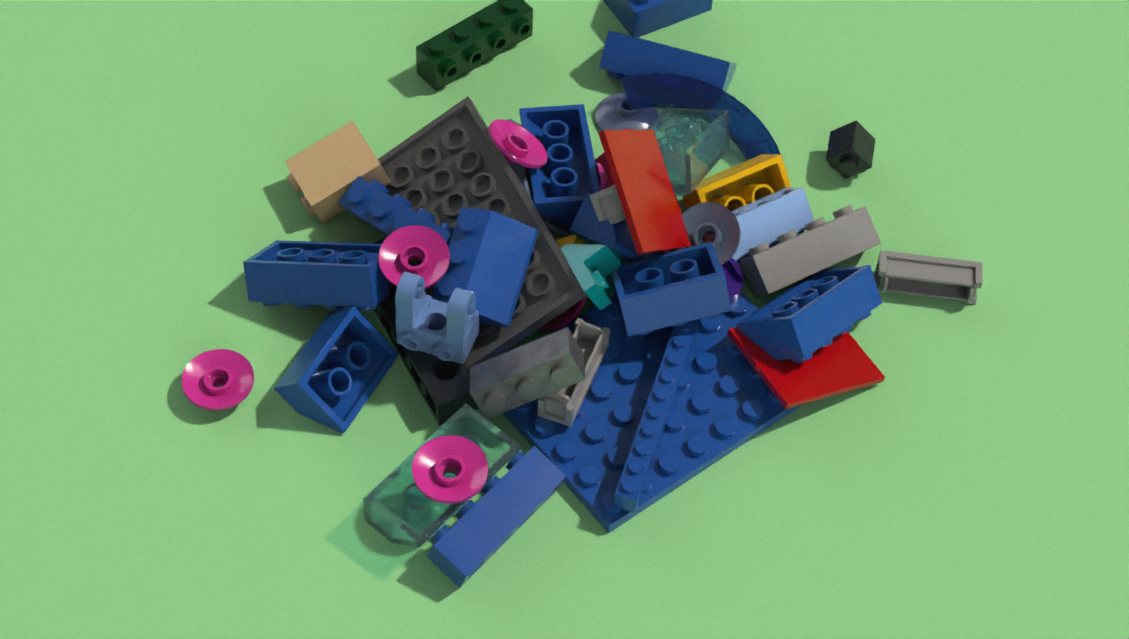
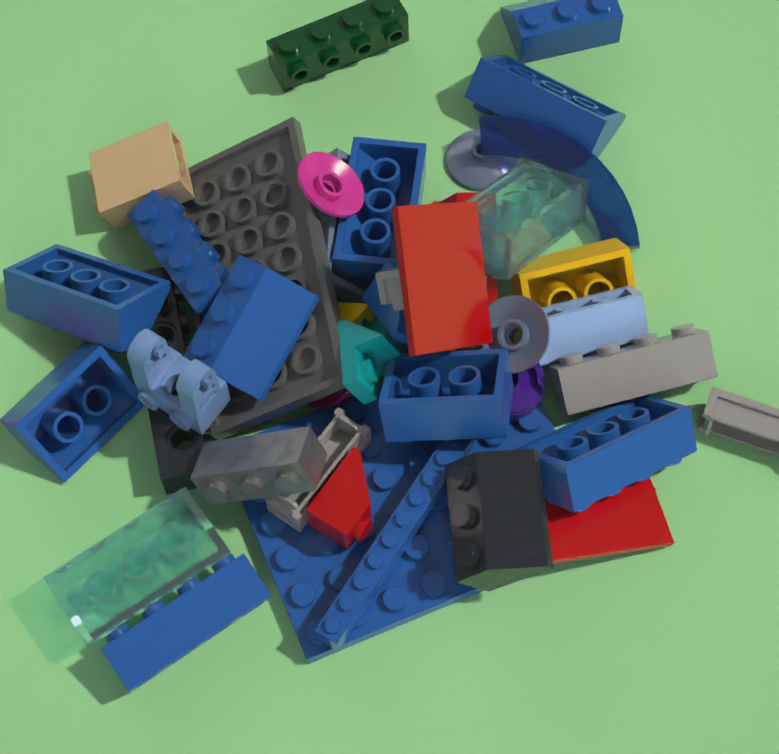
camera: 20 degrees right, 10 degrees up
(412, 244) = (162, 292): dark pink dish -> none
(454, 456) = (135, 549): dark pink dish -> none
(606, 394) = (343, 504): none -> red slope
(742, 375) = (498, 518): none -> black slope
(850, 149) = (720, 250): black brick -> none

